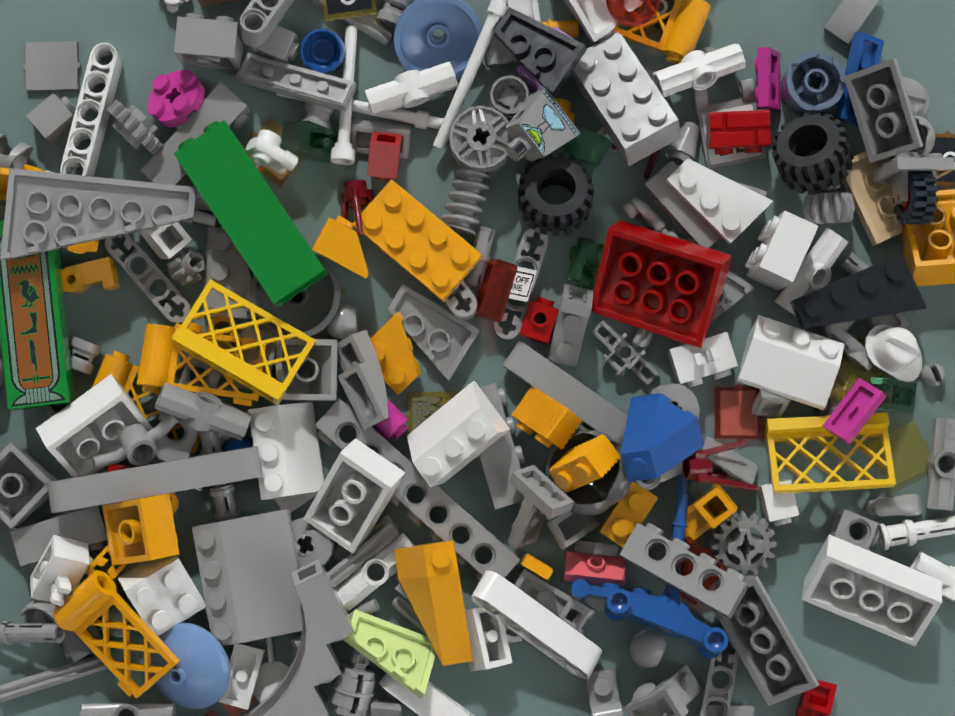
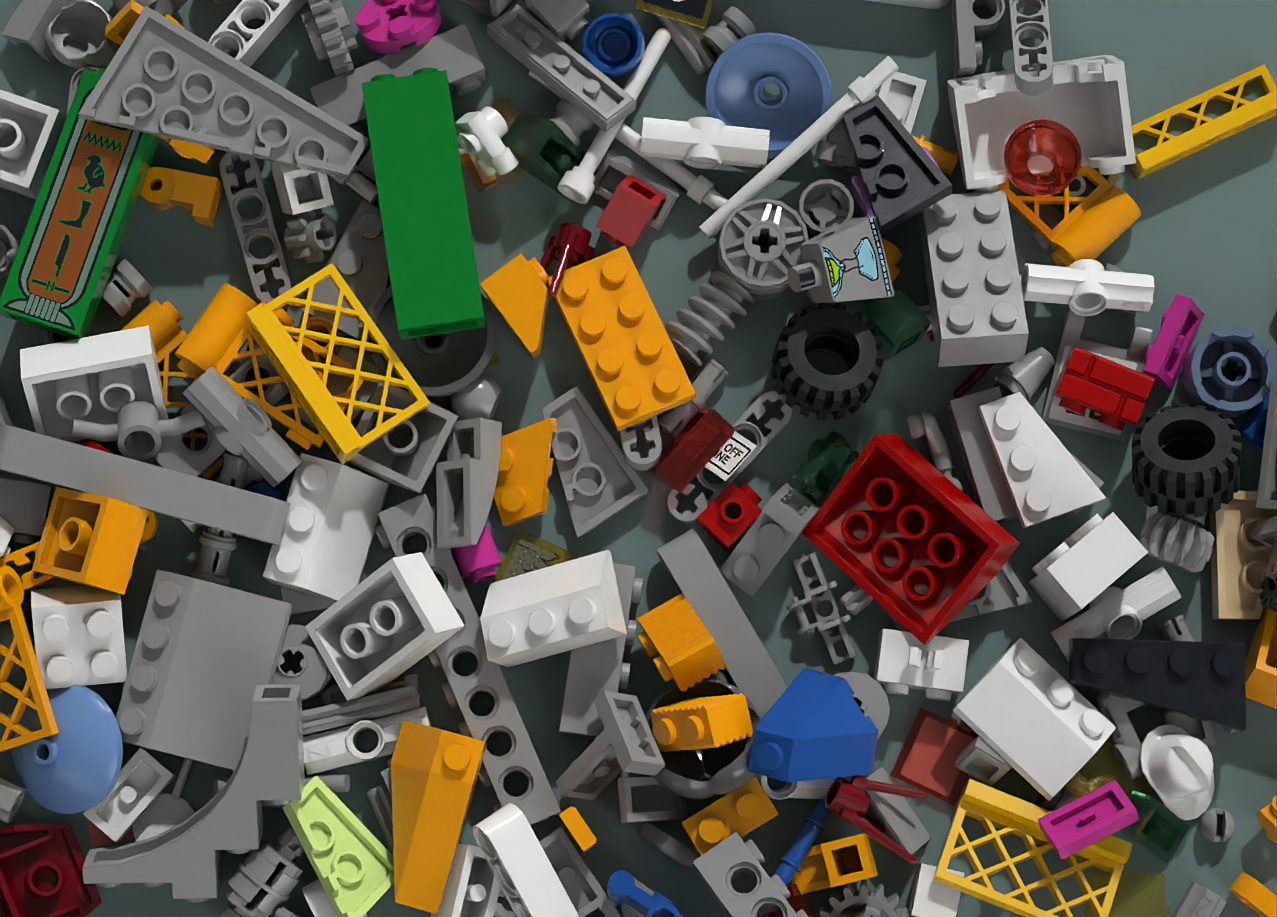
camera: 25 degrees right, 5 degrees down
(594, 568) = (653, 870): coral plate -> none

